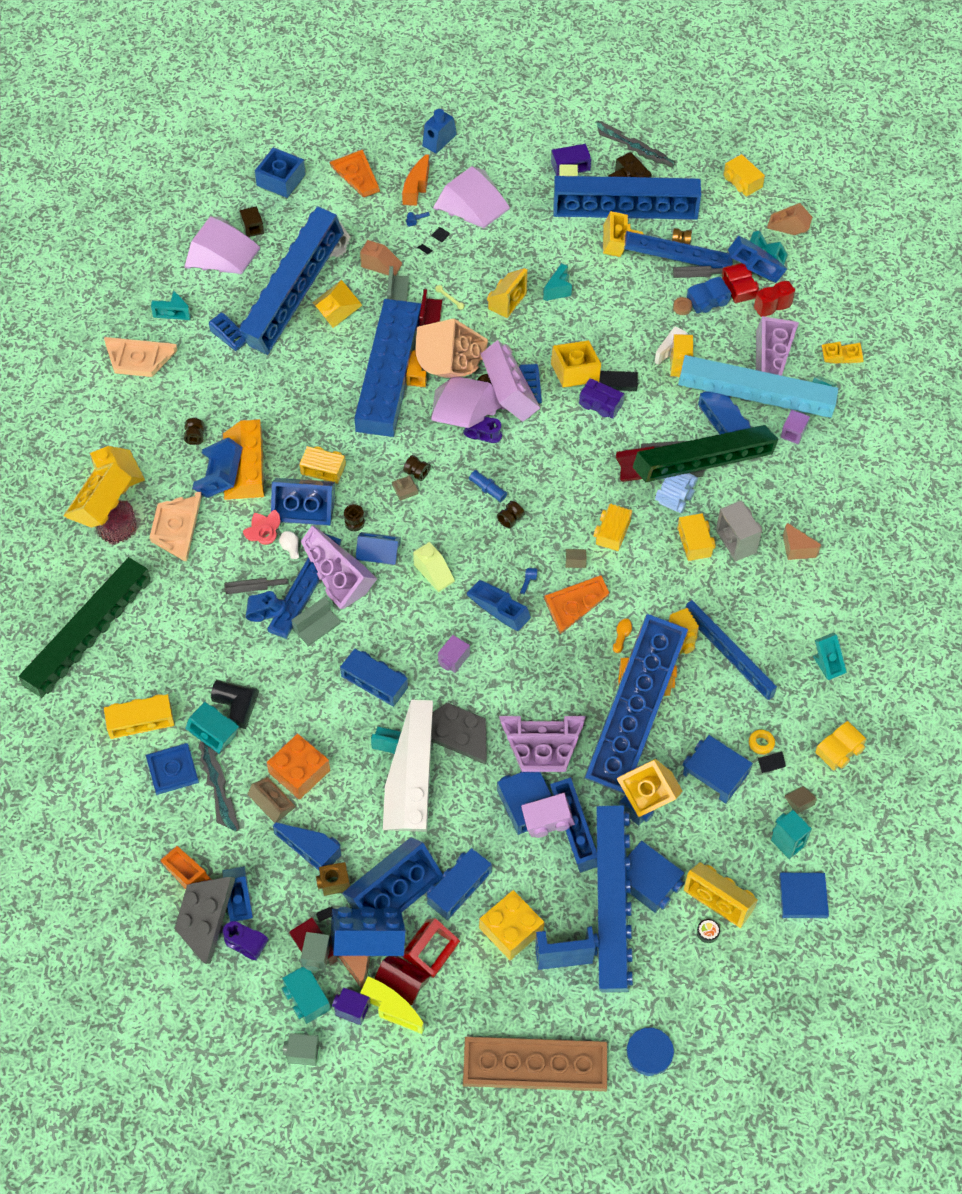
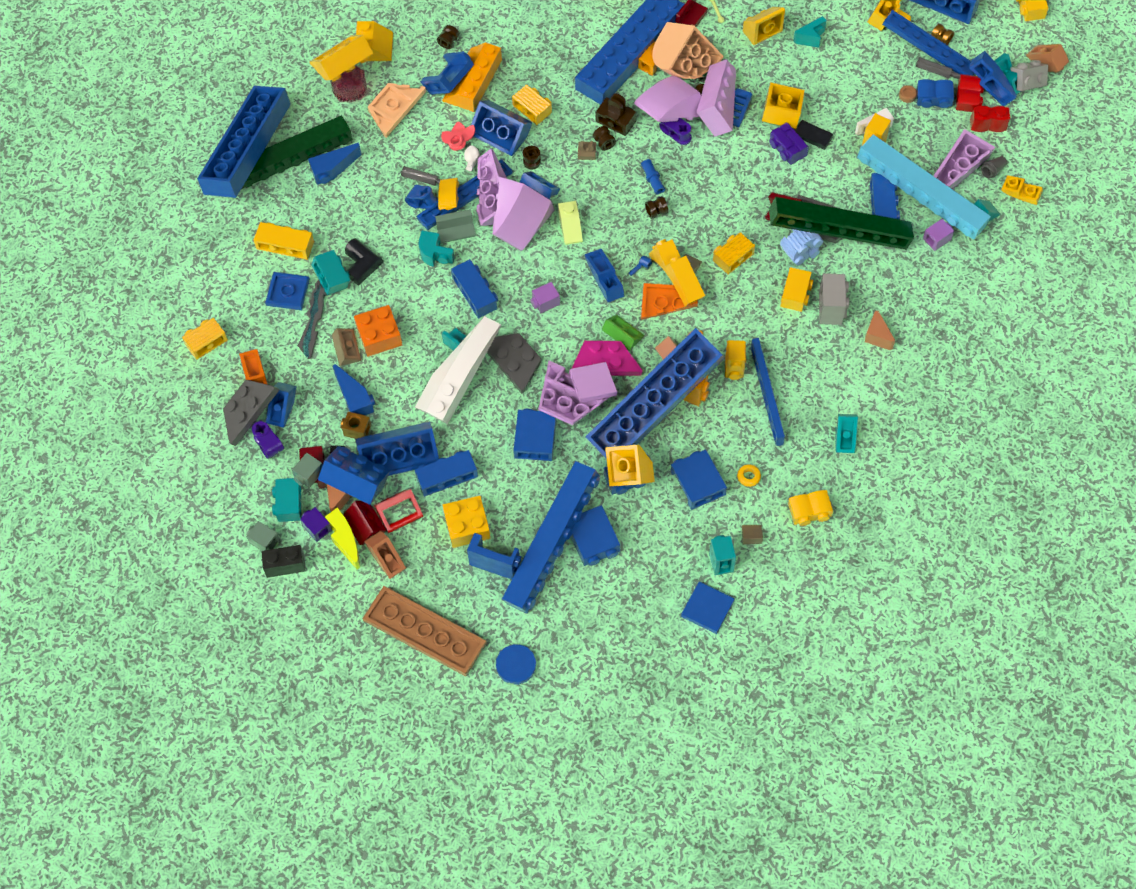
camera: 30 degrees right, 5 degrees up
(40, 629) = (244, 141): none -> blue brick
(109, 861) = (204, 338): none -> yellow brick
(143, 615) = (331, 164): none -> blue slope
(290, 590) = (448, 194): none -> yellow slope
(305, 659) = (432, 251): none -> teal brick
(341, 1063) = (283, 561): none -> pearl dark grey brick
(380, 578) = (519, 213): none -> lavender wedge
(415, 439) = (616, 115): none -> dark brown brick
(445, 1001) = (385, 554): none -> nougat slope
(548, 815) = (537, 451): lavender brick -> none
(550, 655) = (622, 331): none -> bright green slope
(551, 690) = (613, 353): none -> dark pink wing
(559, 718) = (593, 382): none -> lavender tile
(575, 566) = (678, 271): none -> yellow arch
(577, 834) = (558, 466): blue brick -> none
(607, 651) = (666, 347): none -> nougat tile
(708, 931) = (615, 598): tile -> none
(720, 894) = (640, 573): yellow slope -> none
(772, 762) = (747, 495): black sticker -> none
(788, 242) = (1031, 75): none -> light grey bracket
(804, 342) = (993, 167): none -> dark grey cone

